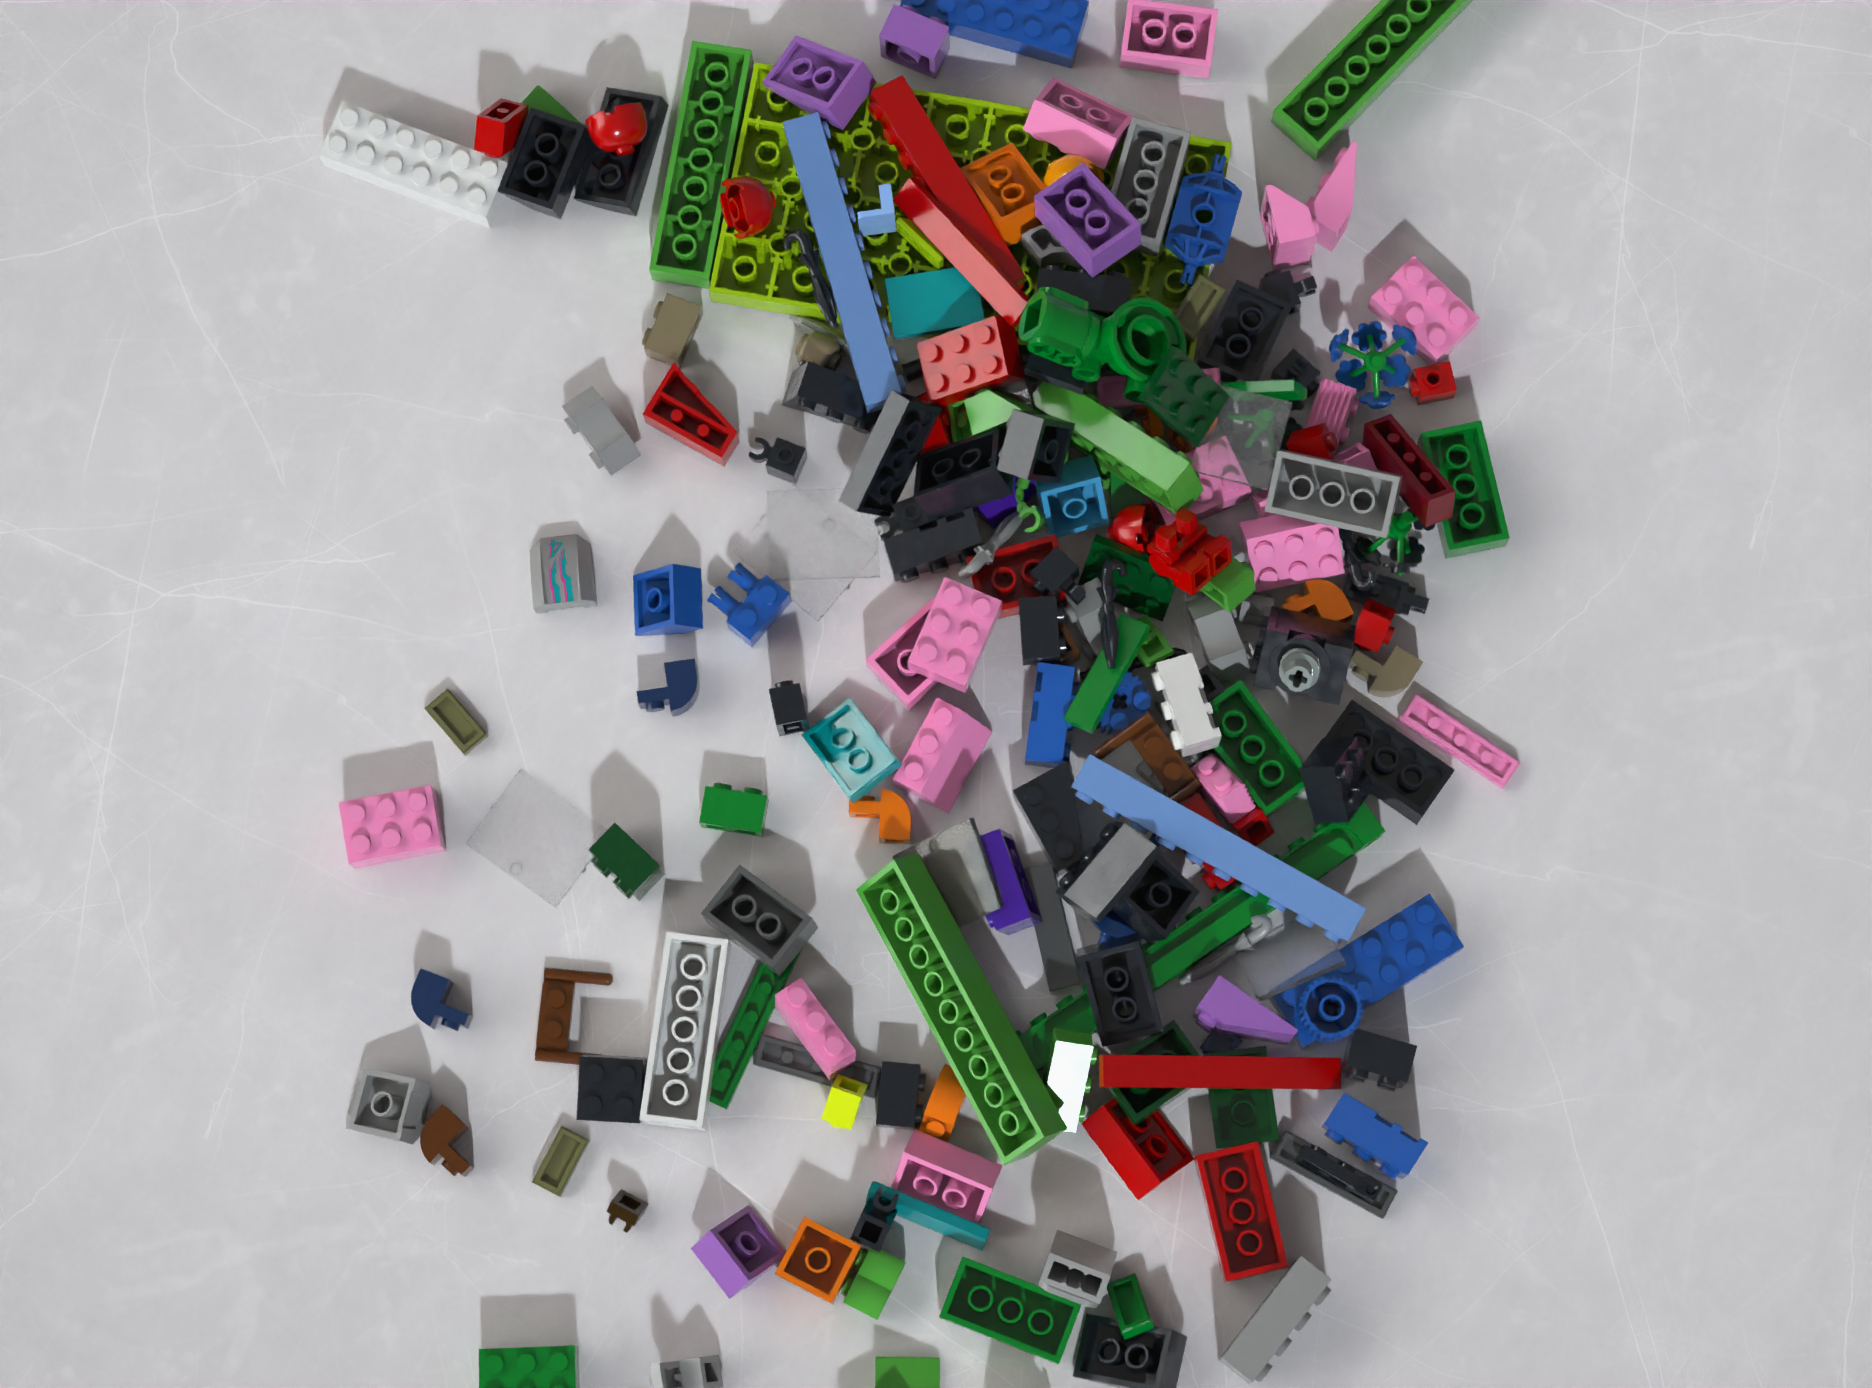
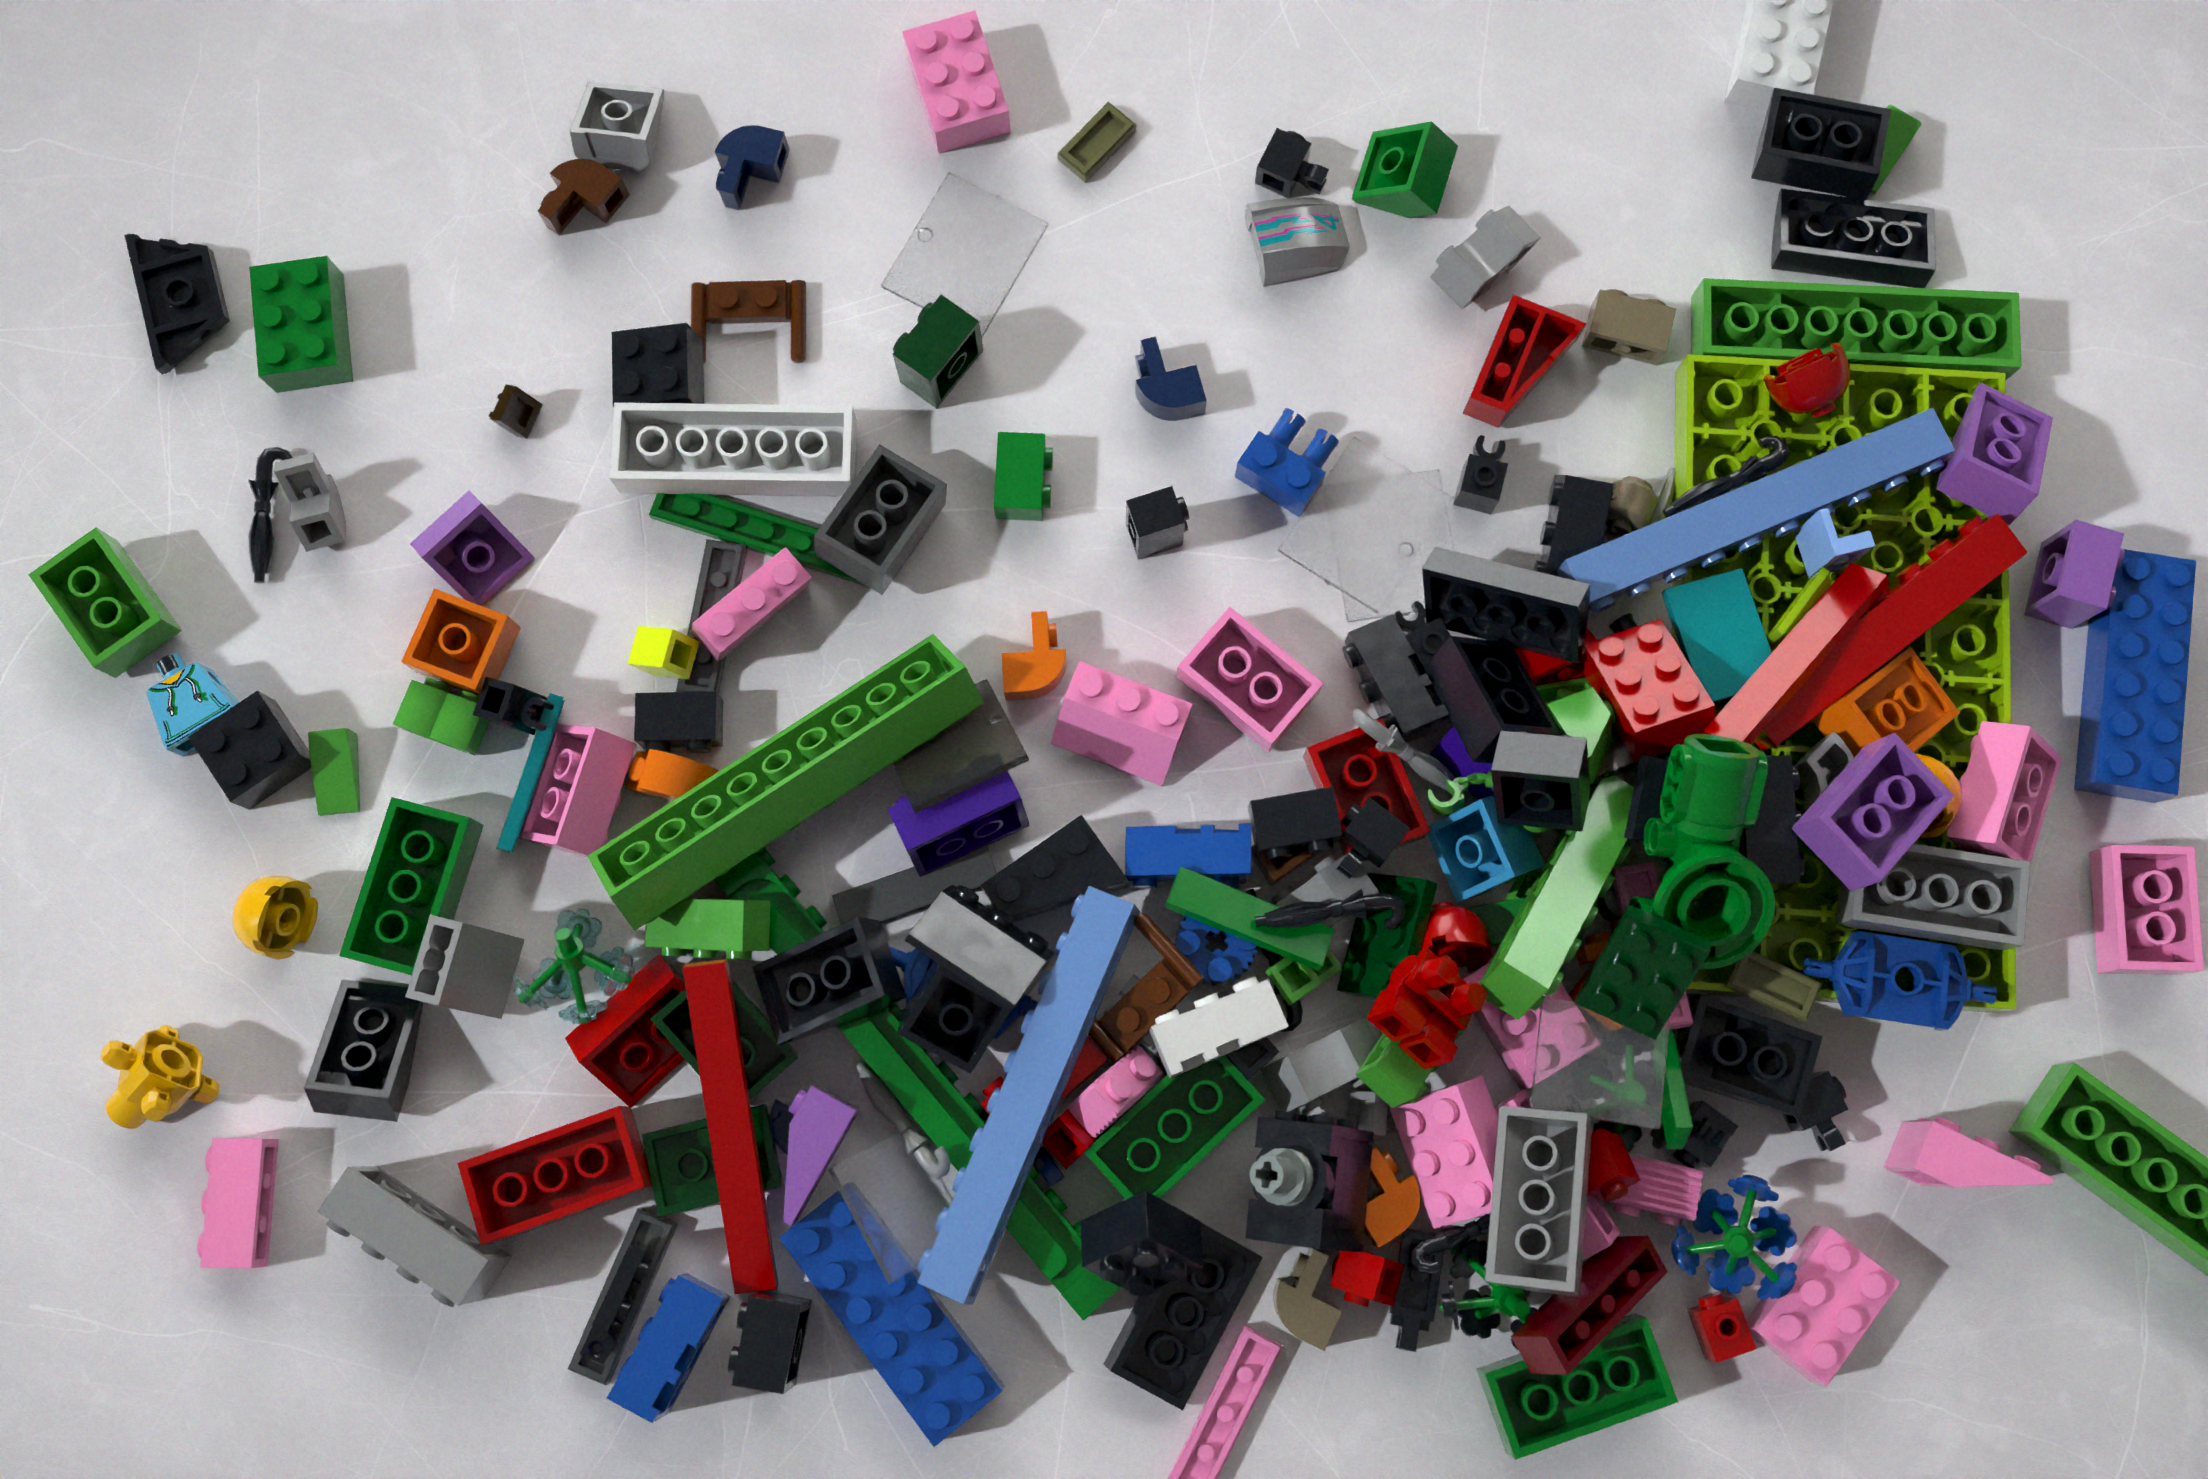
camera: 80 degrees right, 0 degrees up
(499, 127) = (1856, 74): red brick -> none
(500, 573) = (1287, 163): none -> black brick
(519, 482) = (1406, 170): none -> green slope
(561, 1161) = (571, 331): olive tile -> none
(618, 129) = (1884, 218): red cylinder -> none
(668, 601) = (1279, 366): blue slope -> none
(851, 750) = (1112, 608): teal tile -> none
(954, 634) = (1274, 711): bright pink brick -> none
(1085, 1170) = (562, 975): none -> clear light blue plant
(1129, 1306) = (426, 1041): green tile -> none
(1274, 846) = (1047, 1167): none -> dark blue tile
(1287, 229) = (1907, 1100): bright pink slope -> none
(1324, 1026) = (820, 1292): blue brick -> none

